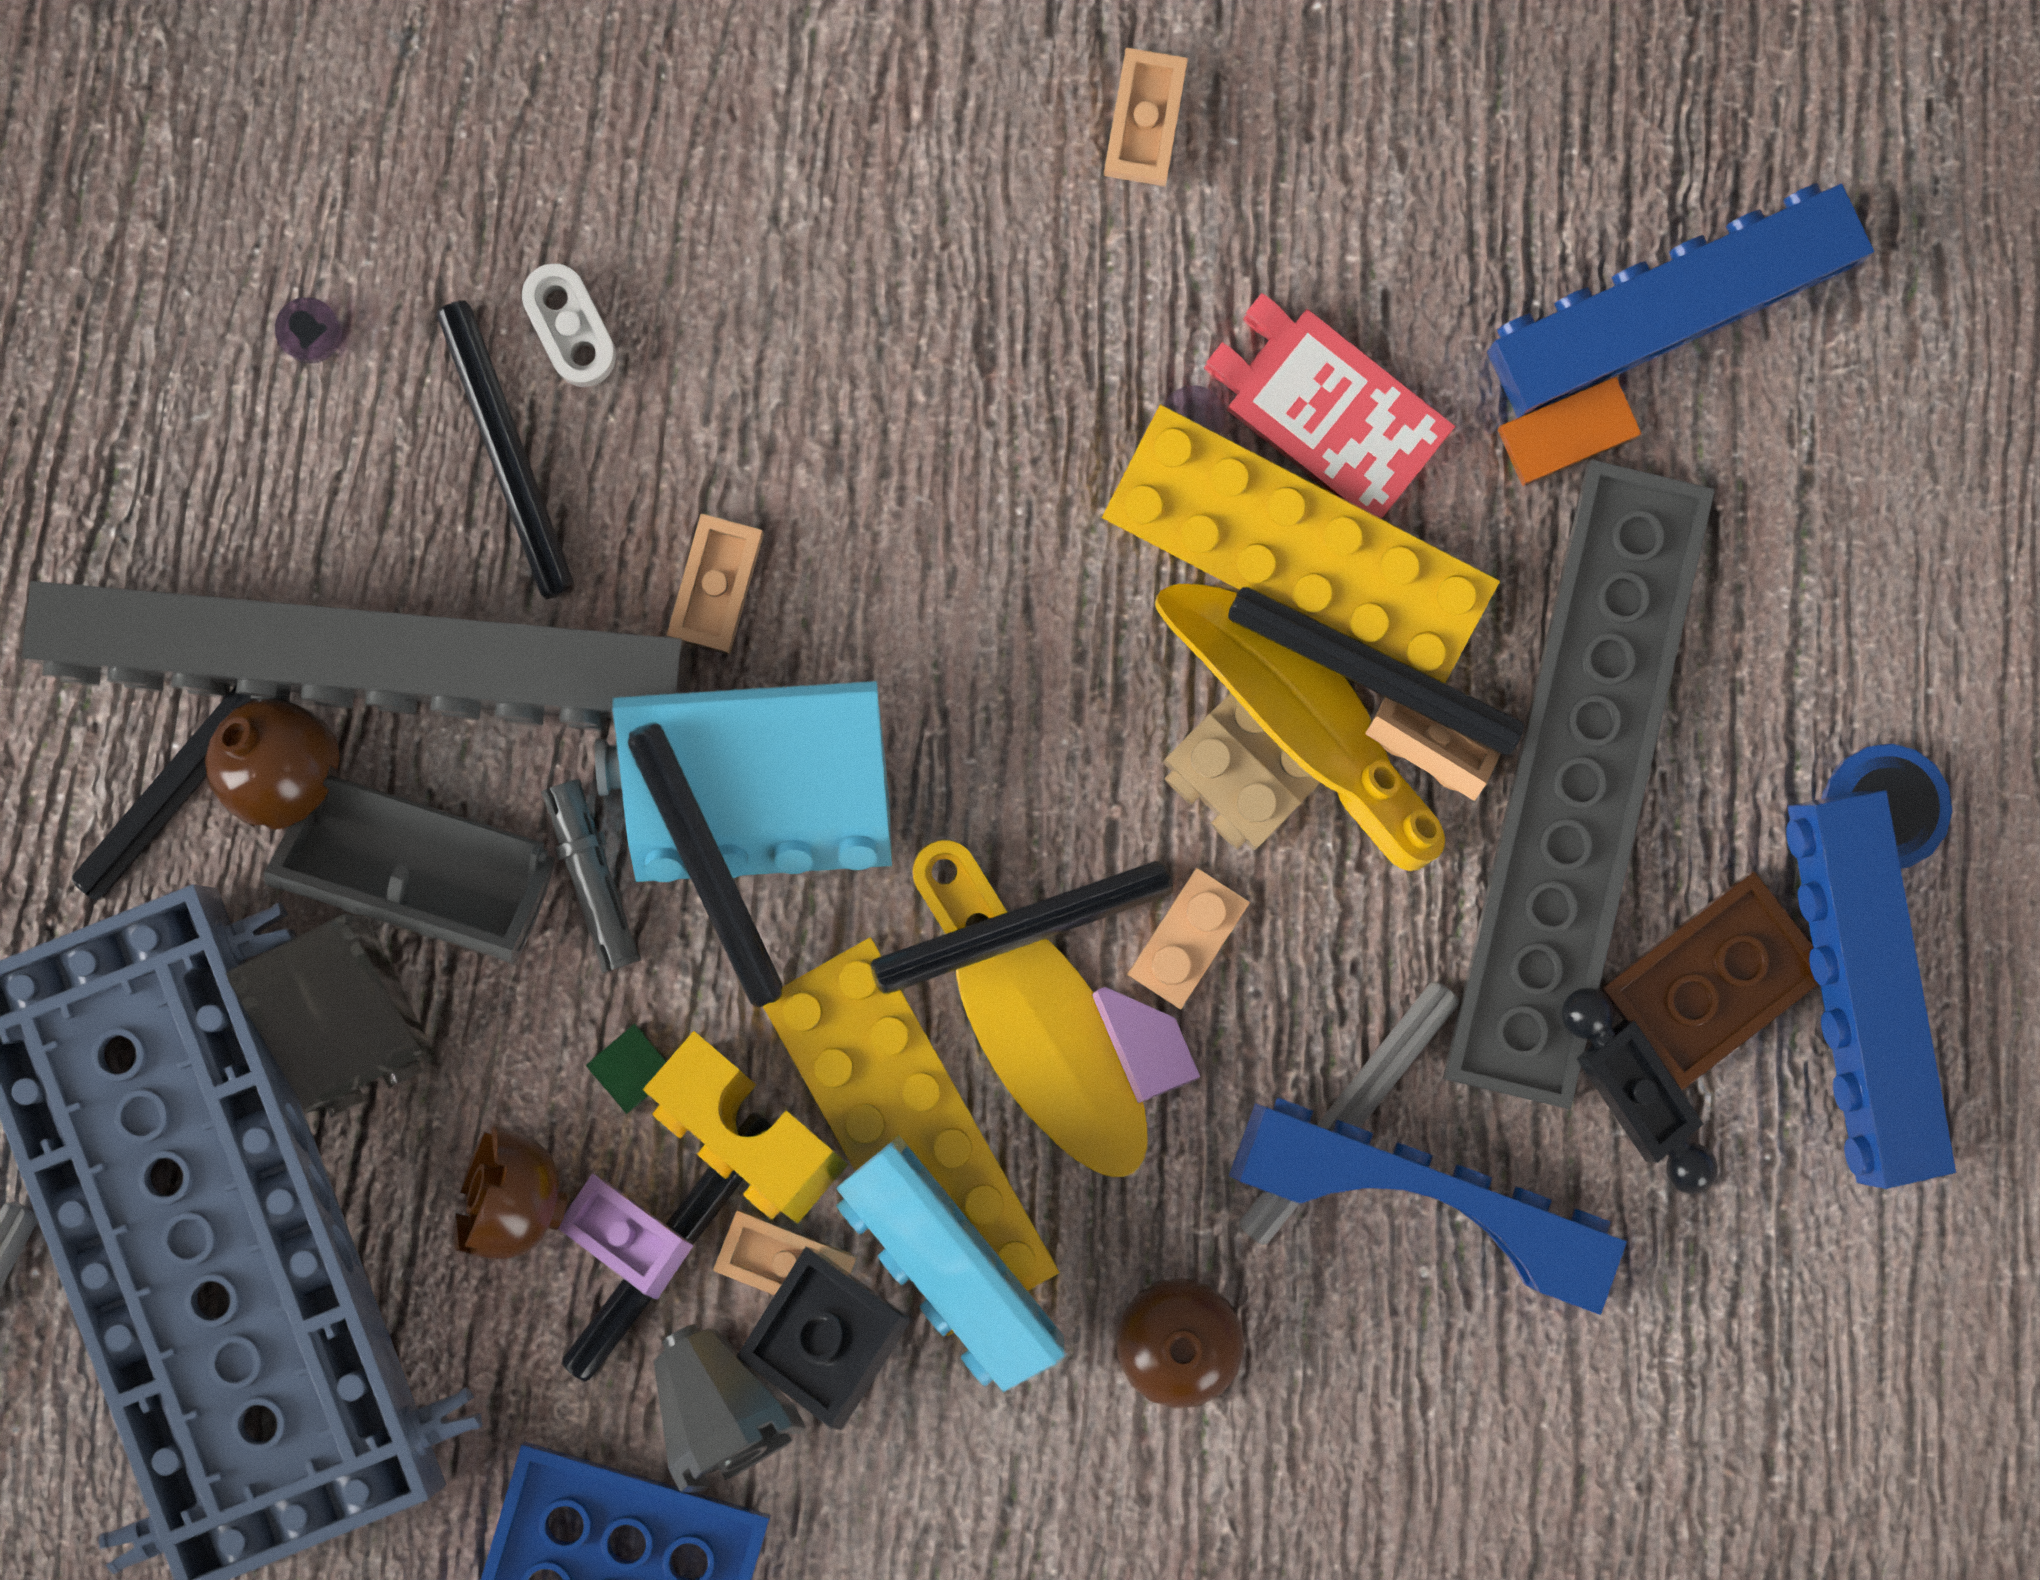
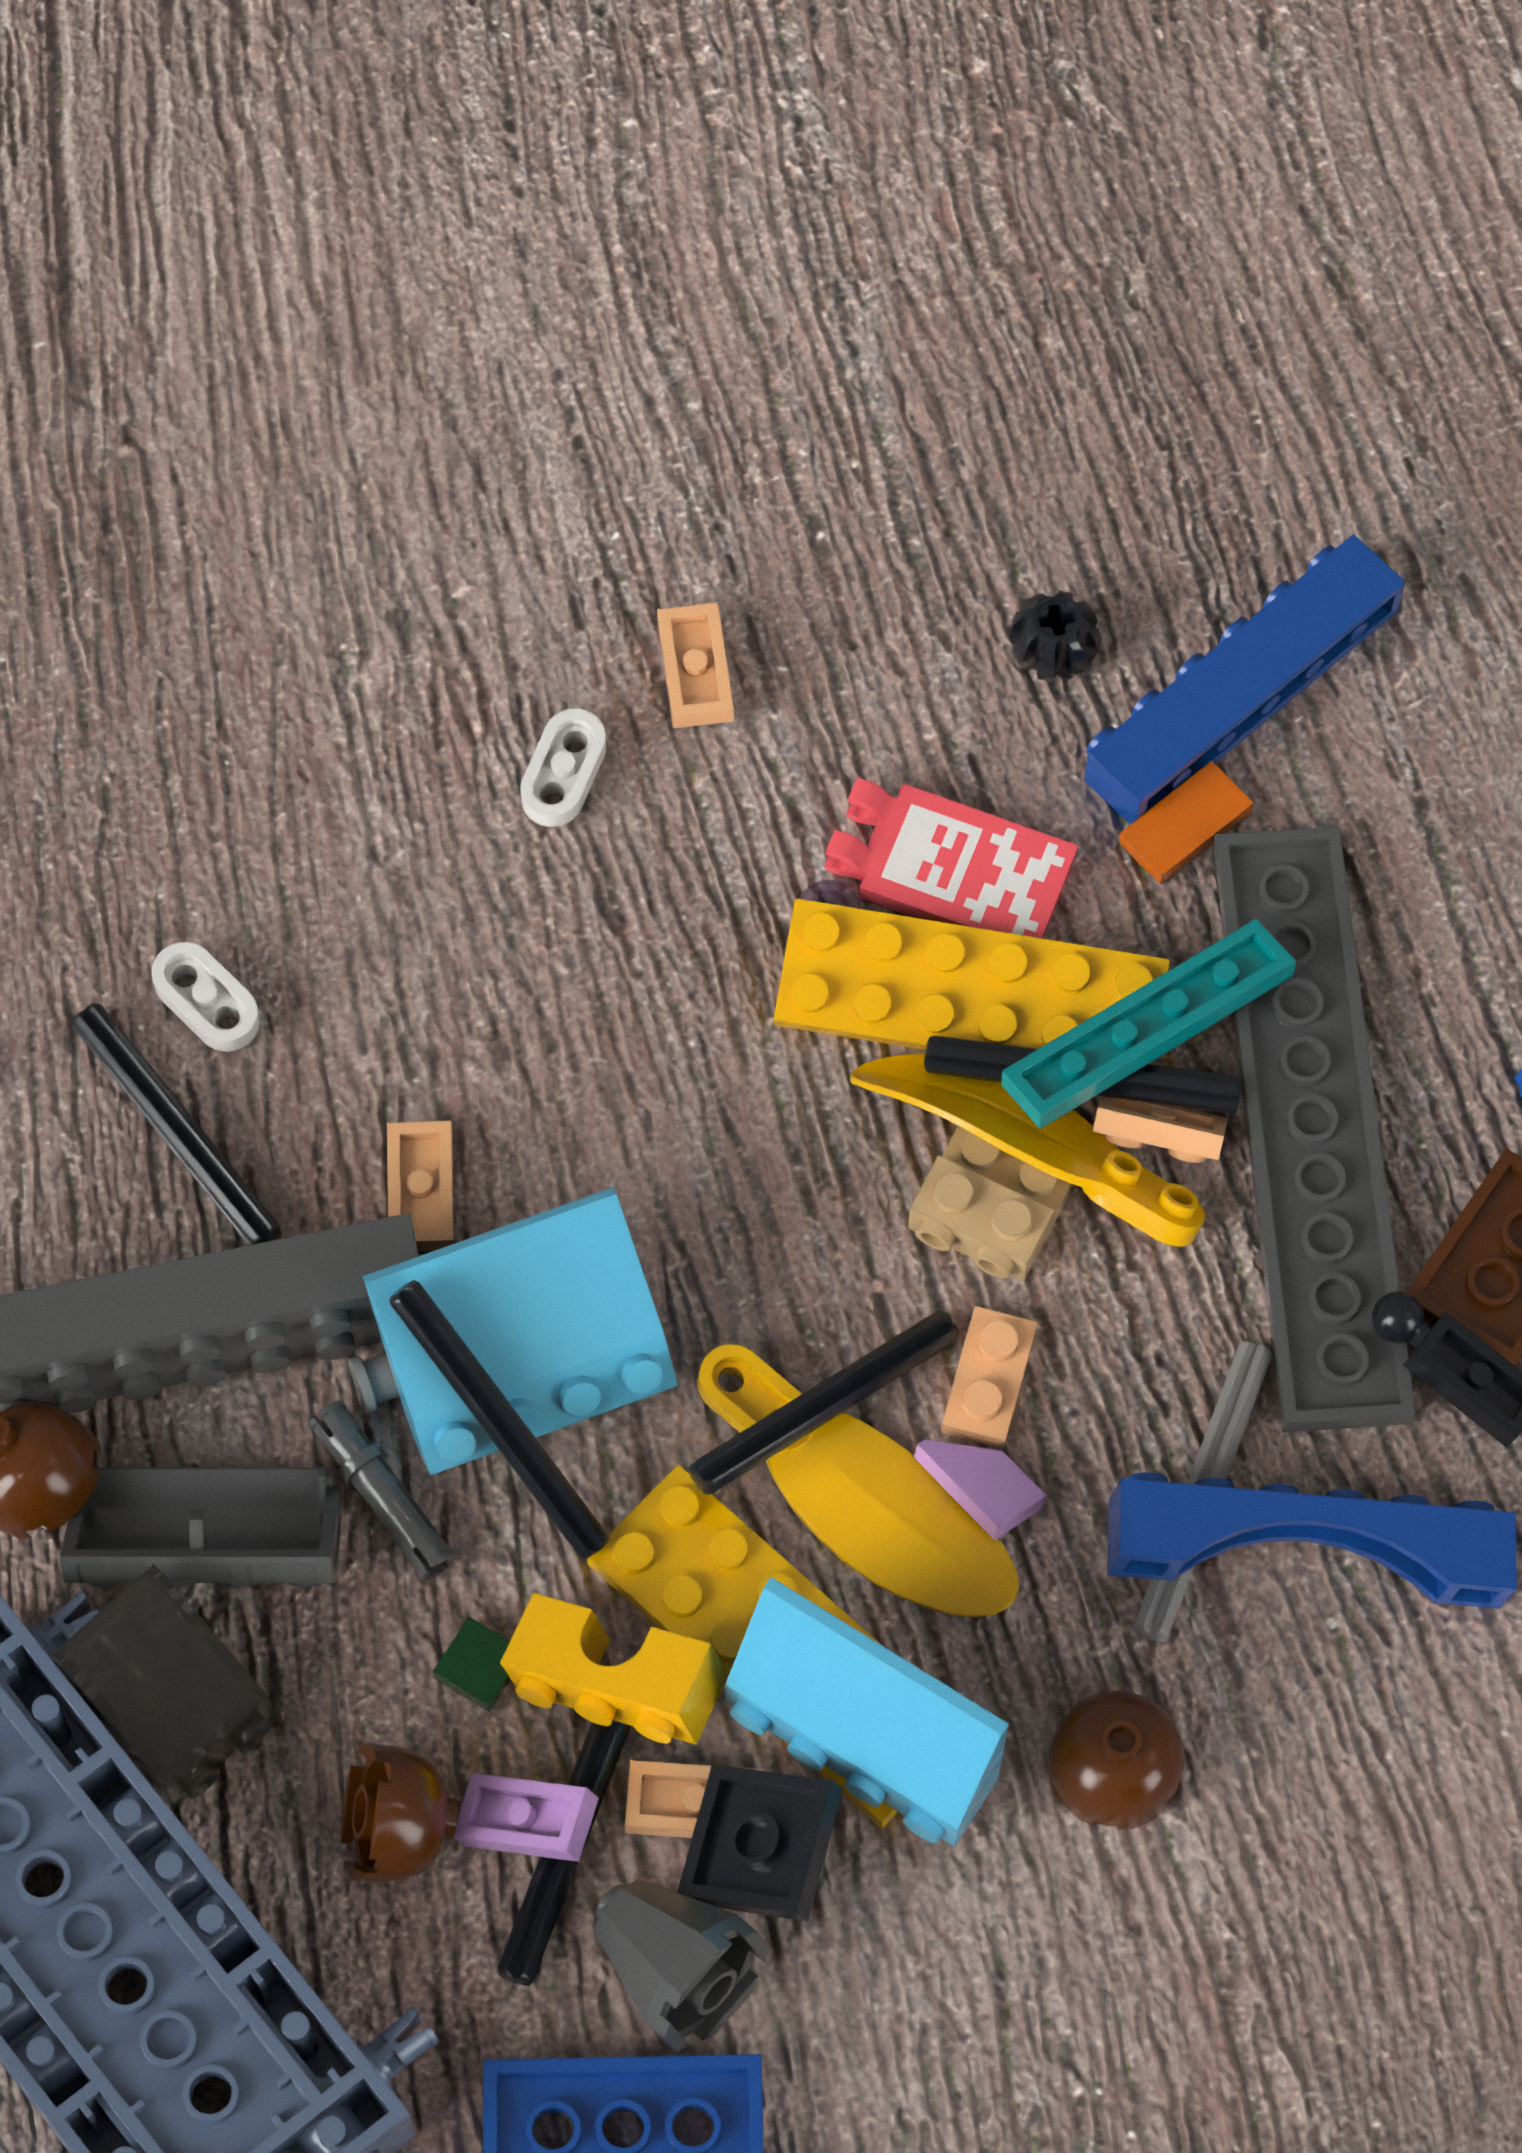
camera: 20 degrees left, 20 degrees down
(982, 190) = (560, 771): none -> white plate
(1454, 649) = (1147, 1023): none -> teal plate
(1525, 188) = (1054, 635): none -> black piece

